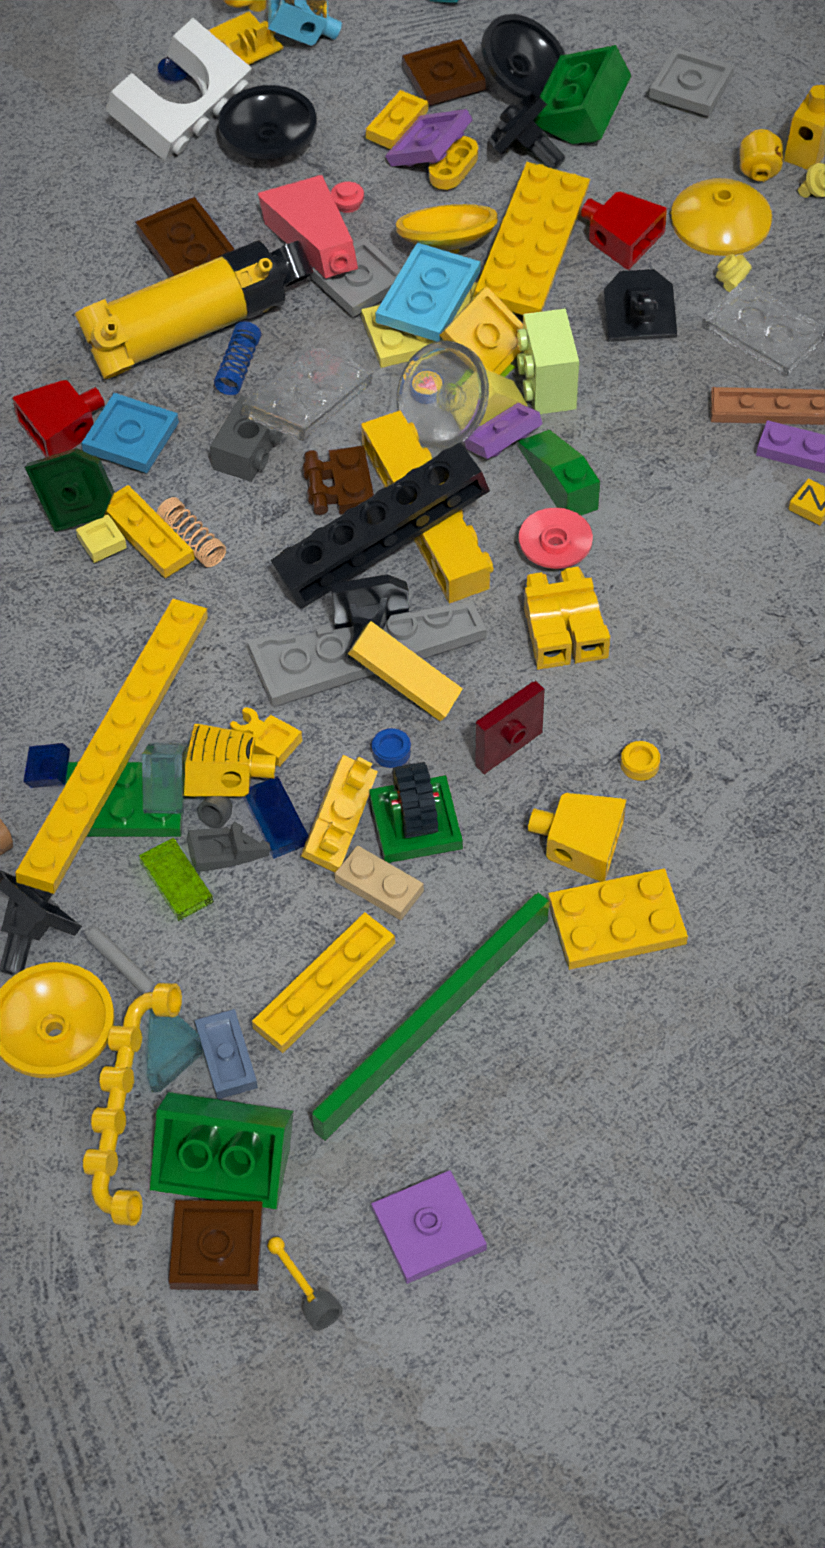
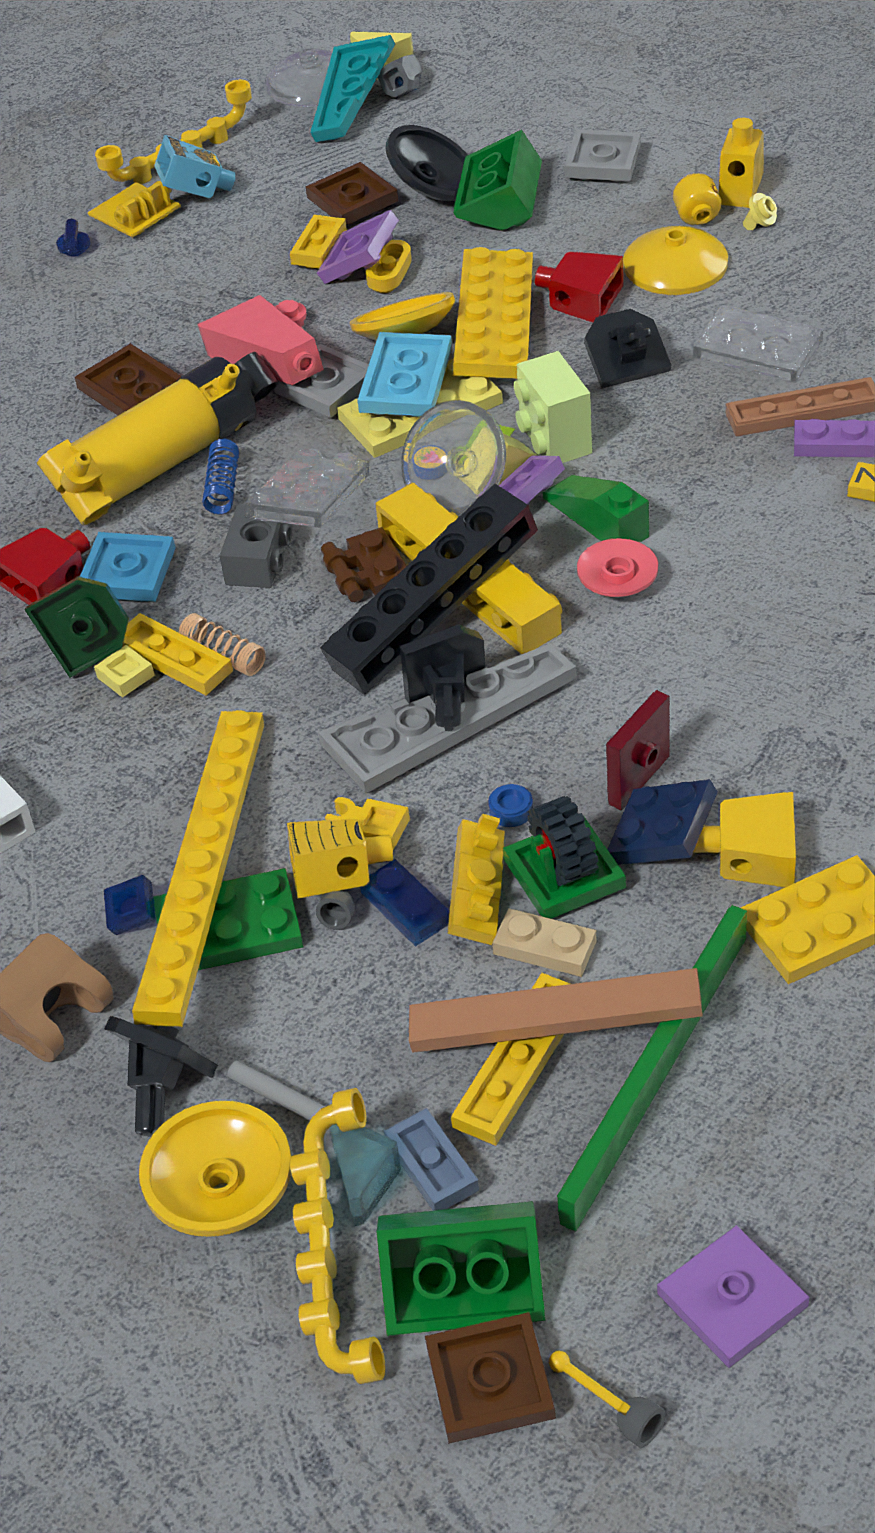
camera: 10 degrees left, 10 degrees down
(164, 777) = (271, 886): clear light blue slope -> none
(169, 125) = (87, 287): white arch -> none
(176, 879) = (312, 990): clear neon green tile -> none
(223, 847) = (357, 946): dark grey slope -> none
(267, 122) = (187, 264): black dish -> none
(362, 951) = (555, 1010): none -> nougat tile
(405, 671) = (503, 722): yellow tile -> none
(487, 330) = (482, 386): yellow plate -> none
(509, 798) = (662, 822): none -> dark blue plate
(519, 124) = (447, 217): black piece -> none
(565, 619) = (656, 637): yellow hips -> none
(640, 760) = (787, 758): yellow tile -> none
(733, 271) = (706, 301): light yellow plate -> none

